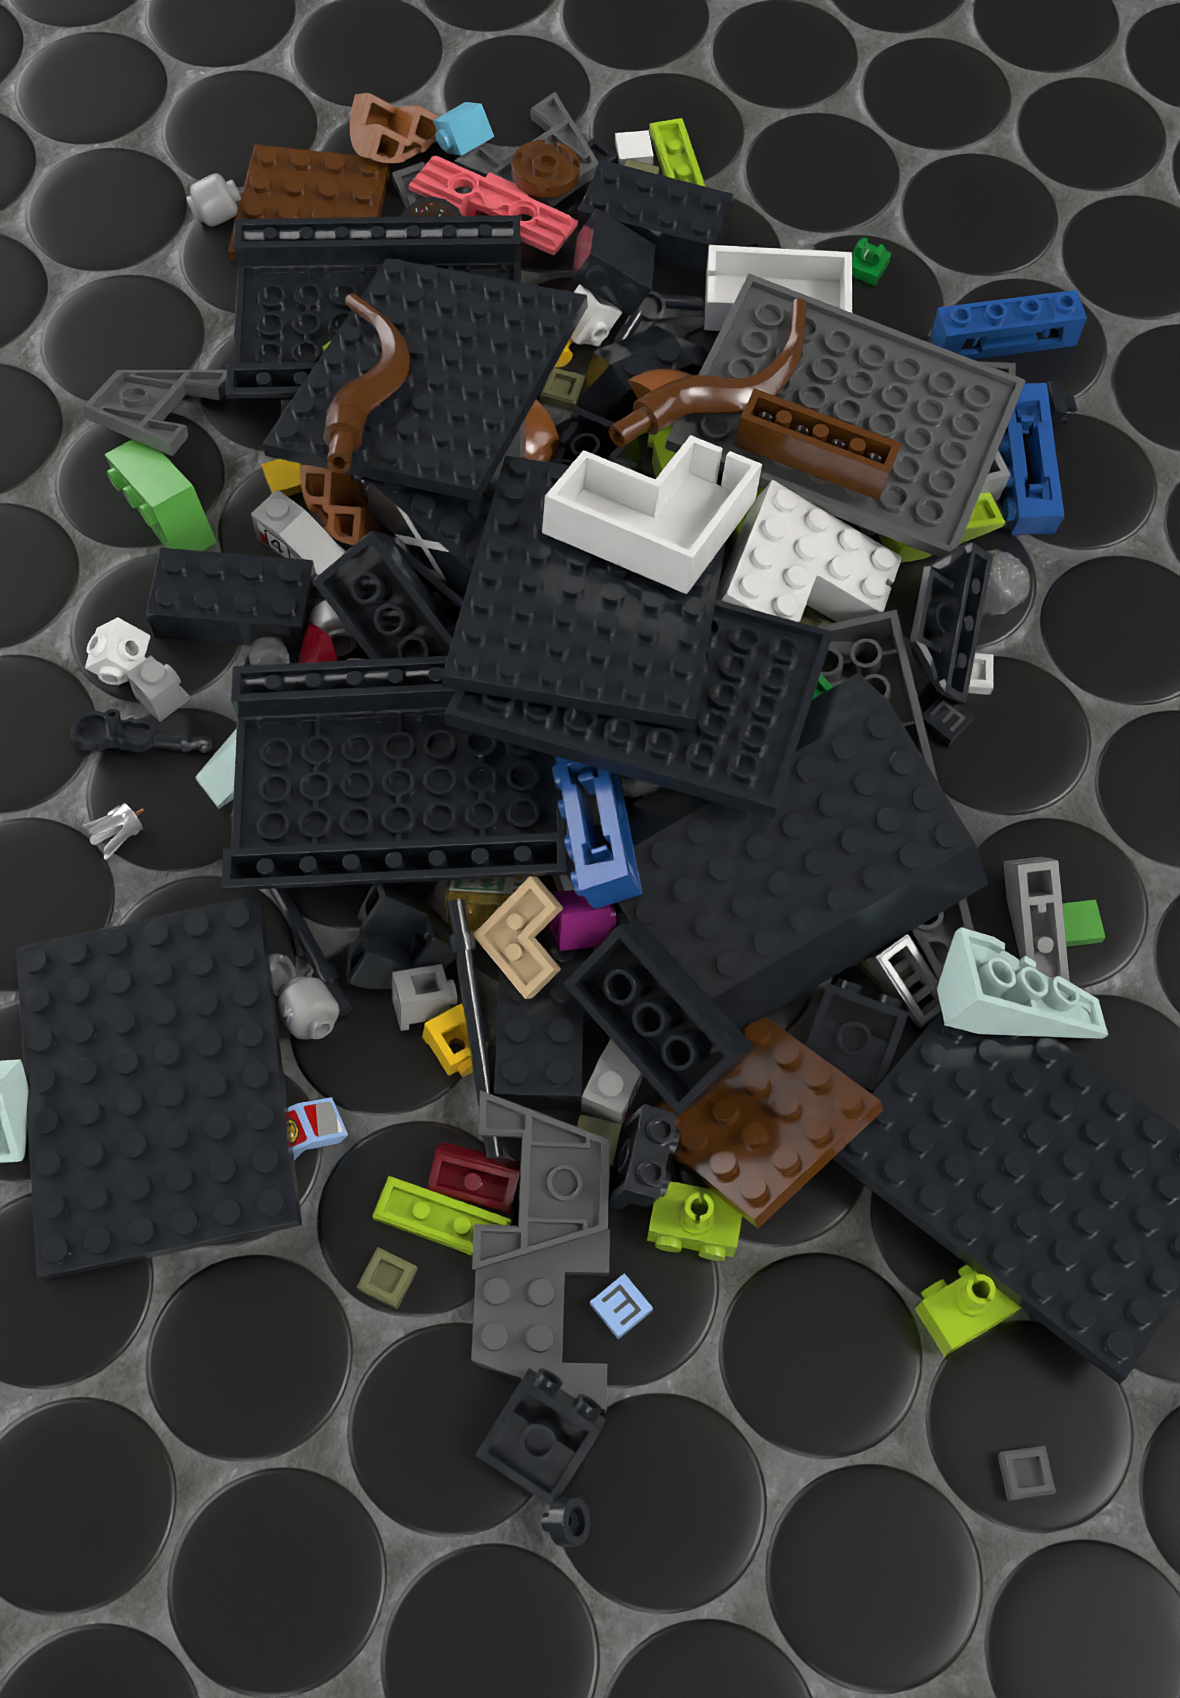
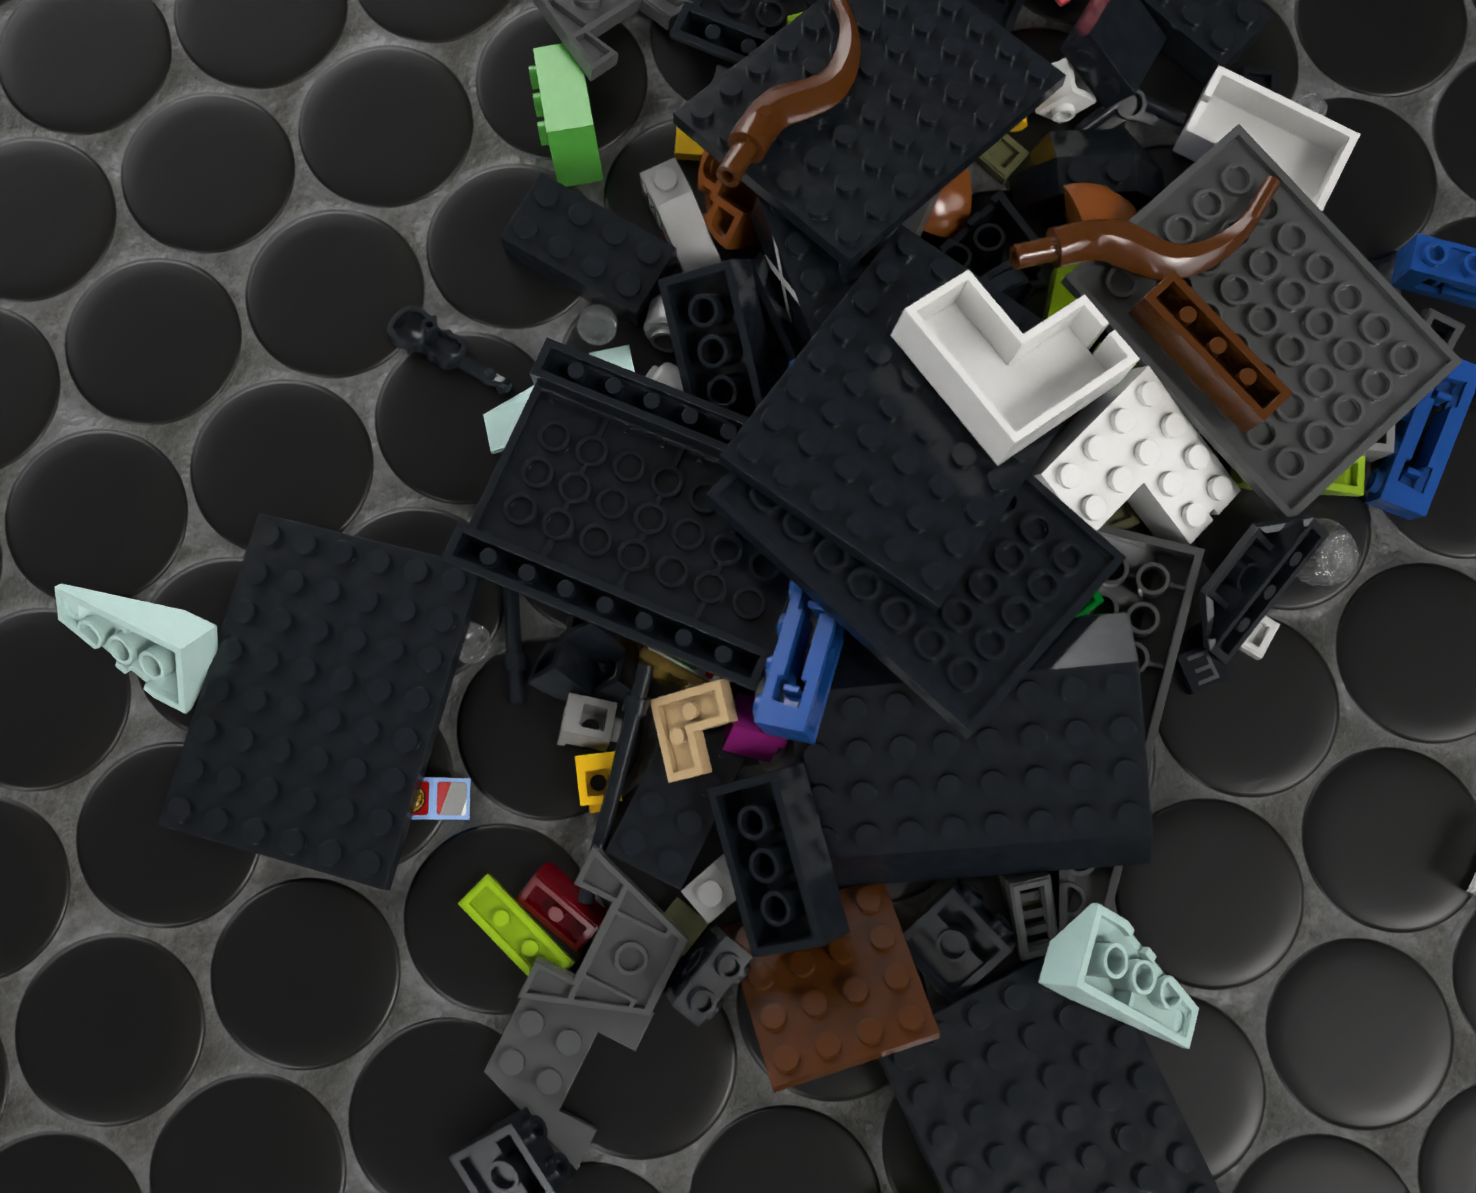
camera: 25 degrees right, 15 degrees up
(116, 651) = (461, 261): white brick -> none
(119, 821) = (397, 428): flat silver piece -> none
(157, 688) = (483, 313): light grey brick -> none
(307, 1006) = (483, 687): light grey head -> none
(316, 646) = (637, 346): dark red slope -> none
(387, 1278) = (447, 962): olive tile -> none
(621, 1306) = (633, 1084): light blue tile -> none
(696, 1221) = (731, 1044): lime brick -> none
(869, 261) = (1376, 143): green tile -> none
(1037, 913) = (1184, 904): light grey slope -> none
(1082, 923) = (1220, 926): bright green tile -> none

